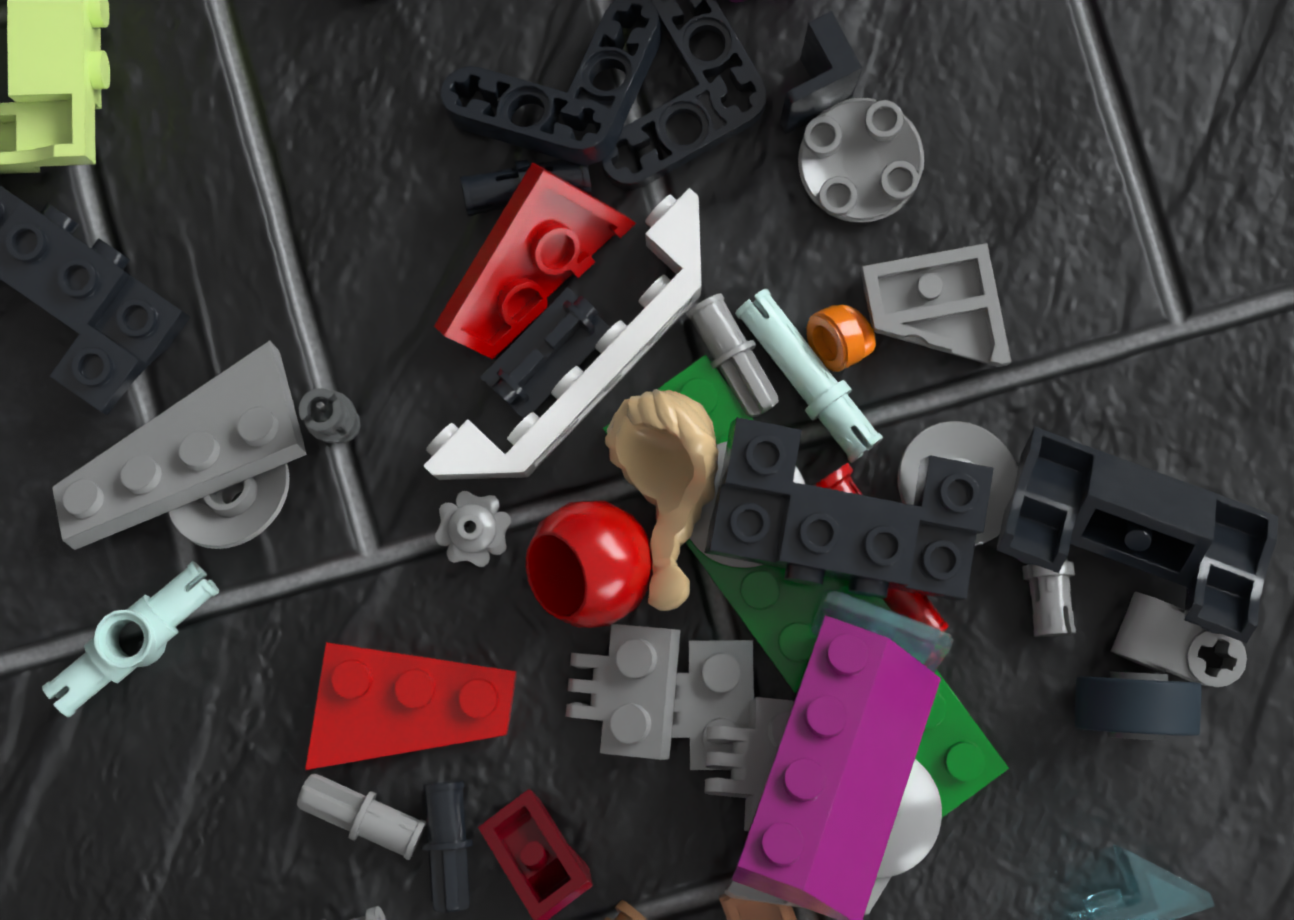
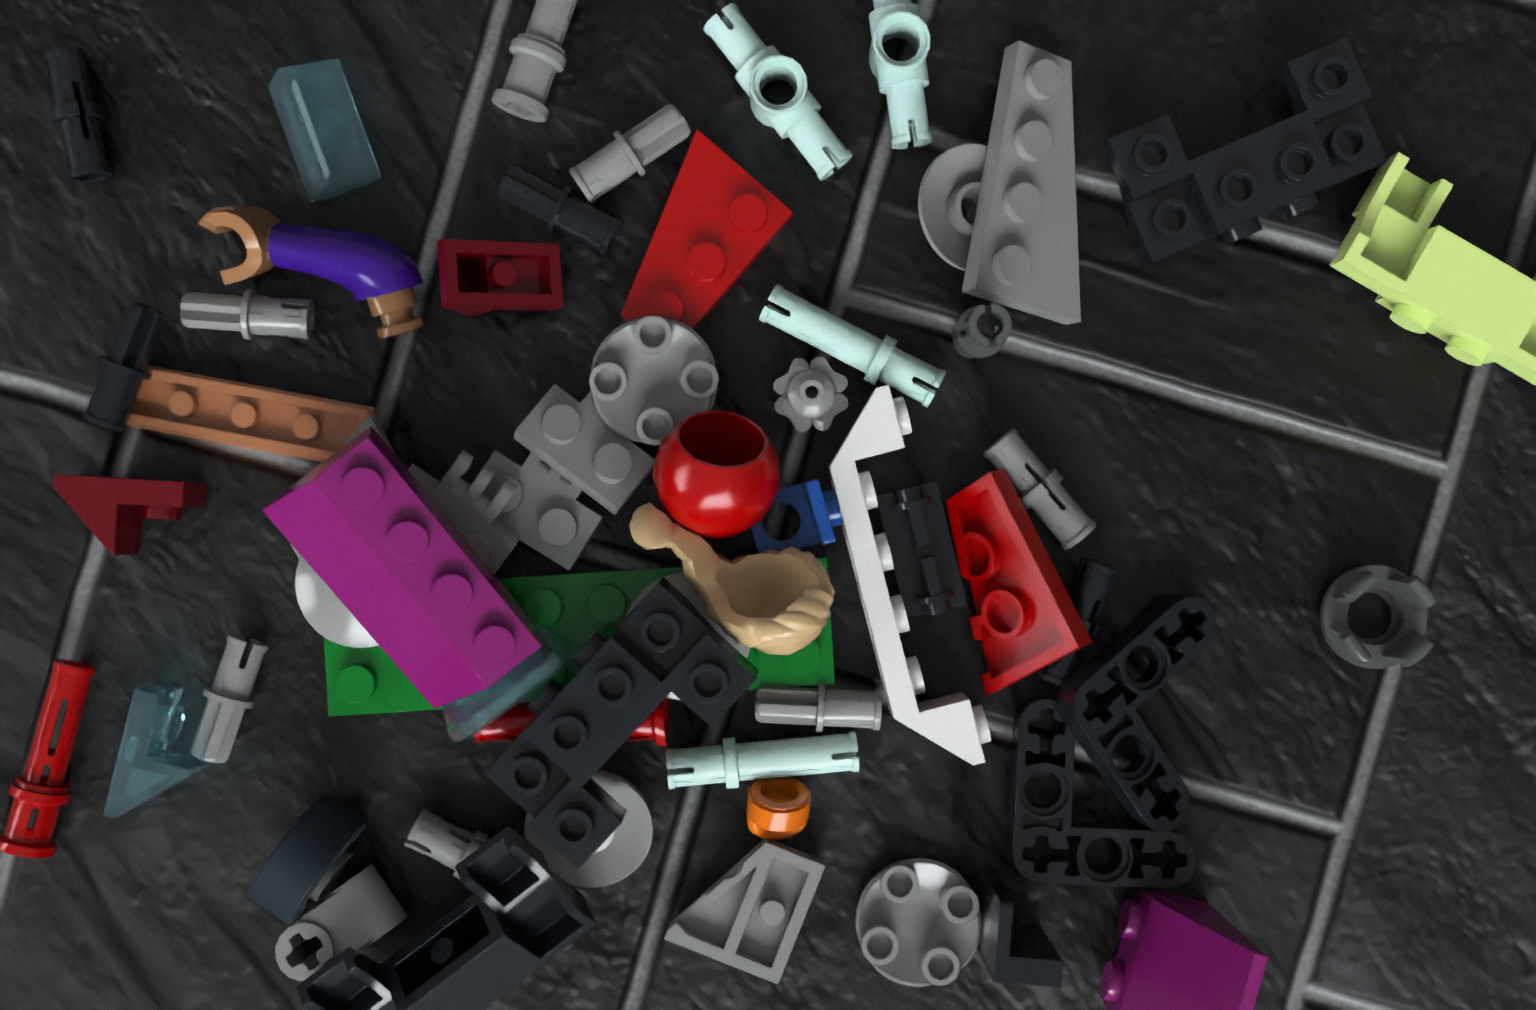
camera: 115 degrees right, 5 degrees up
(215, 749) = (764, 64): none -> light aqua pin
(409, 519) = (852, 345): none -> light aqua pin
(432, 285) = (1040, 489): none -> light grey pin
(543, 671) = (652, 378): none -> light grey dish
(574, 456) = (817, 514): none -> blue bracket
(1050, 865) = (228, 699): none -> light grey axle

